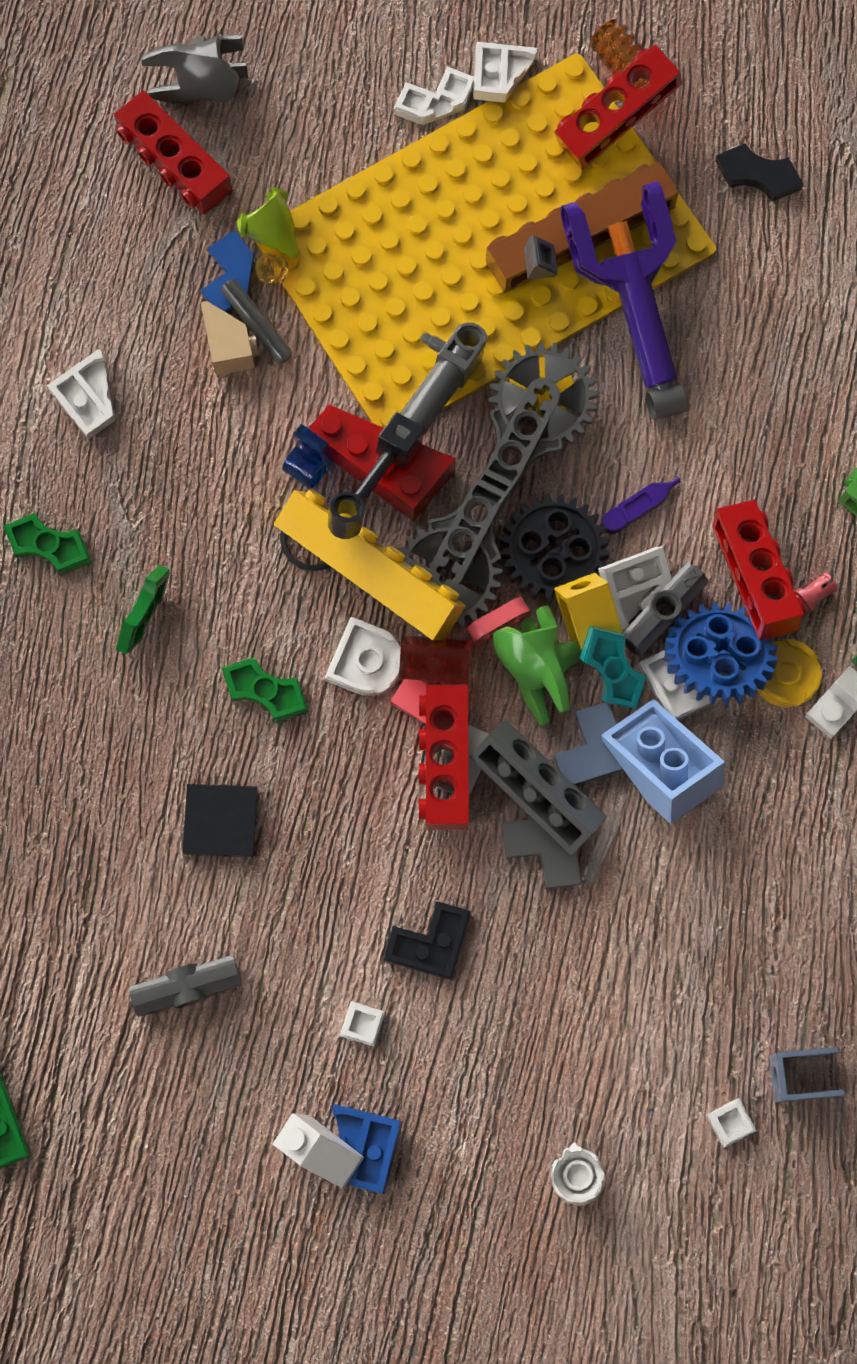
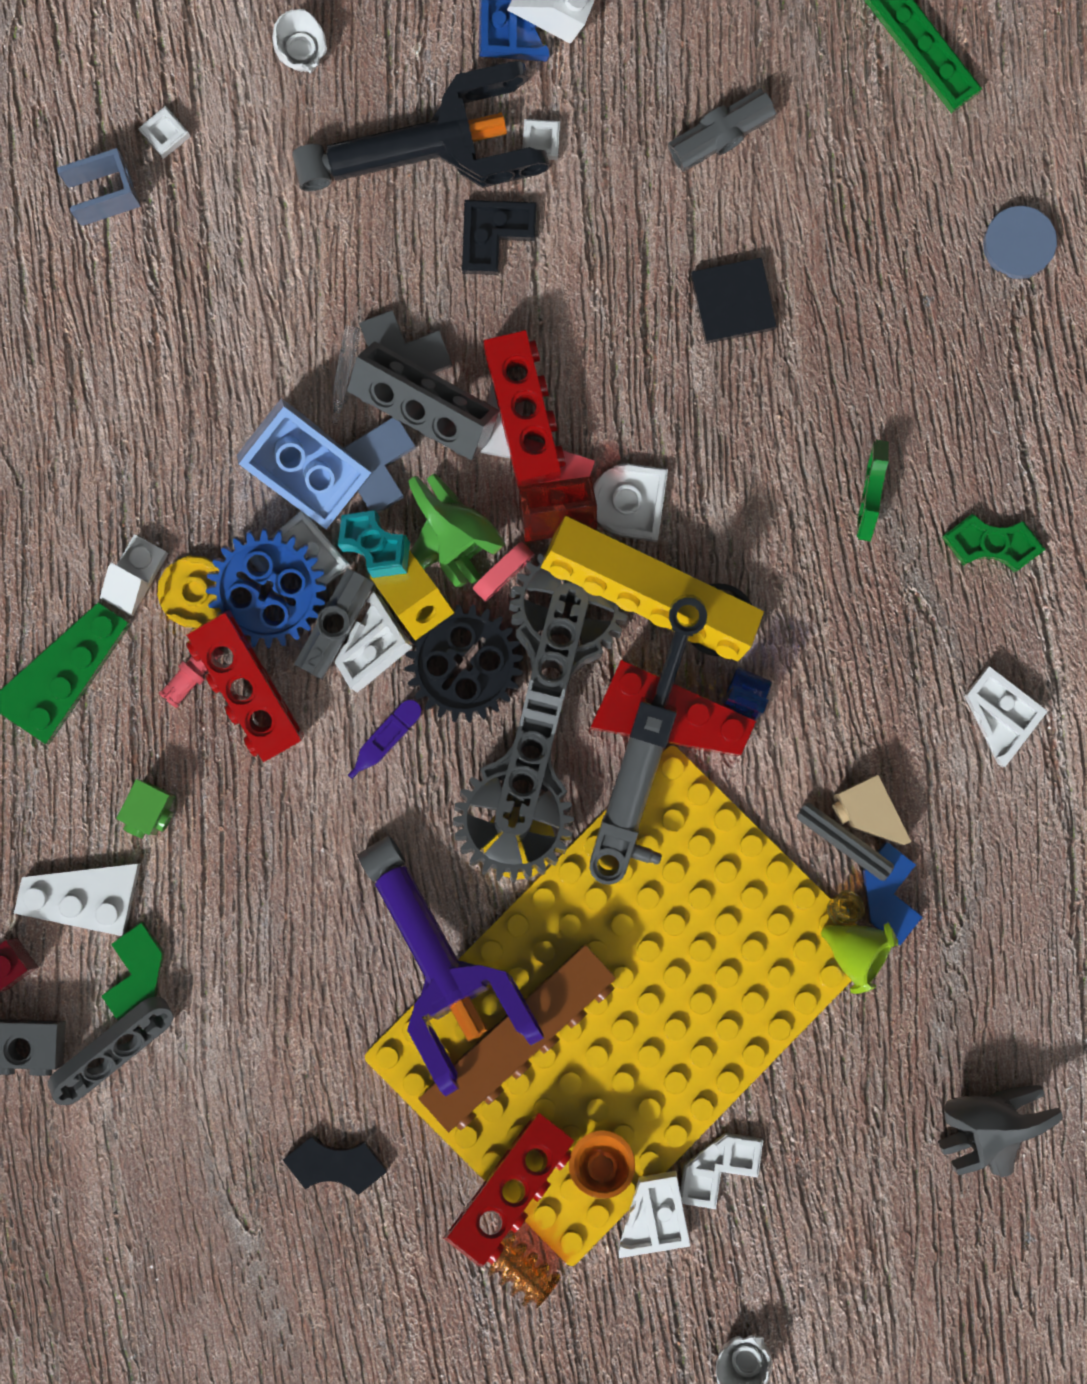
camera: 165 degrees right, 10 degrees up
(145, 115) = (1040, 1058): red brick -> none
(279, 696) = (740, 447): green tile -> none
(455, 1044) = (444, 137): none -> black piece
(535, 108) = (602, 1164): none -> orange helmet
(539, 258) = (552, 975): dark grey slope -> none

